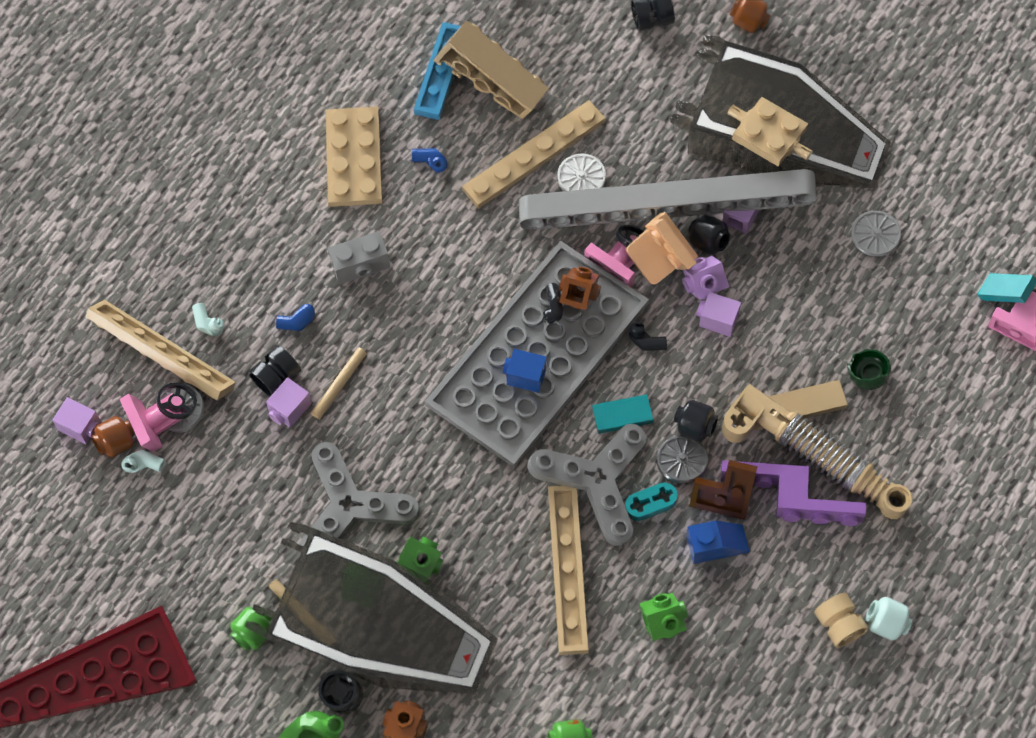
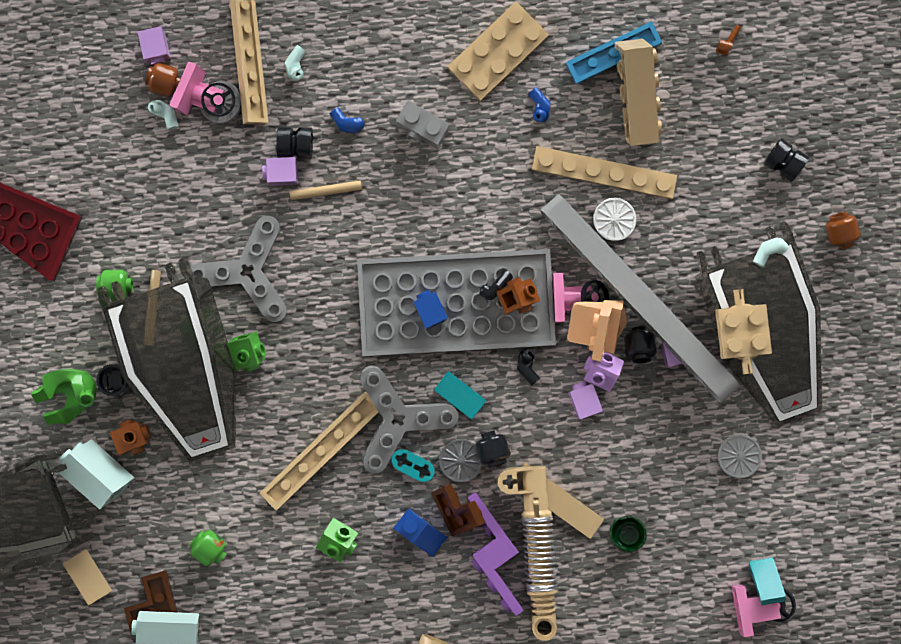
camera: 45 degrees right, 20 degrees up
(715, 61) = (770, 247): none -> light aqua arm

